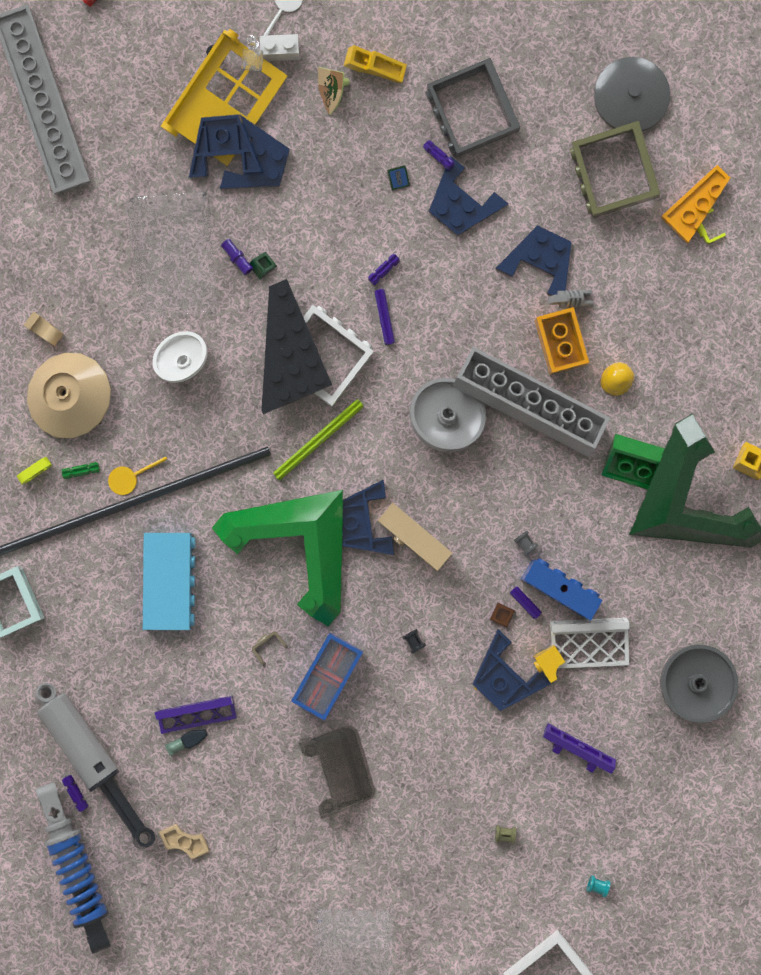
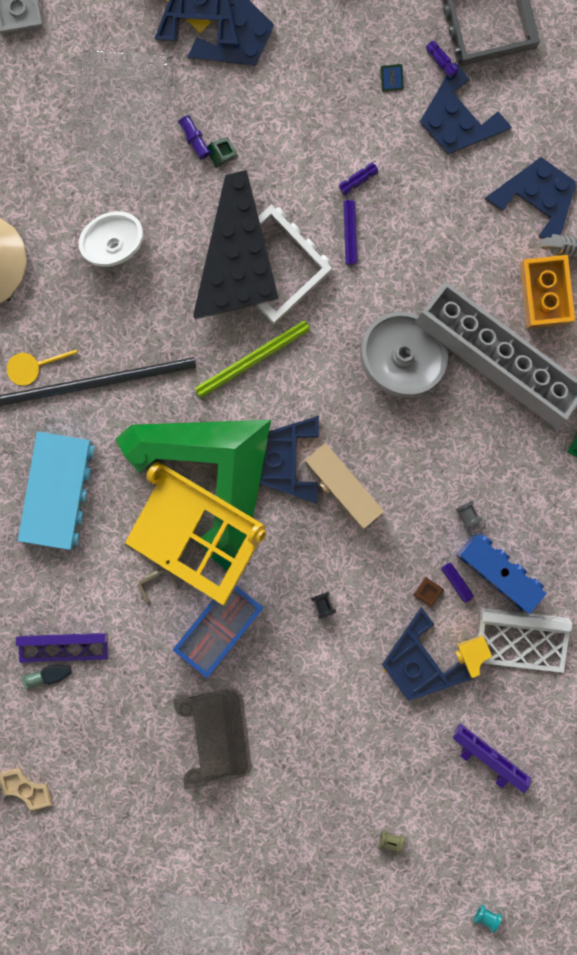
camera: 10 degrees right, 0 degrees up
(271, 592) = (171, 520): none -> yellow door

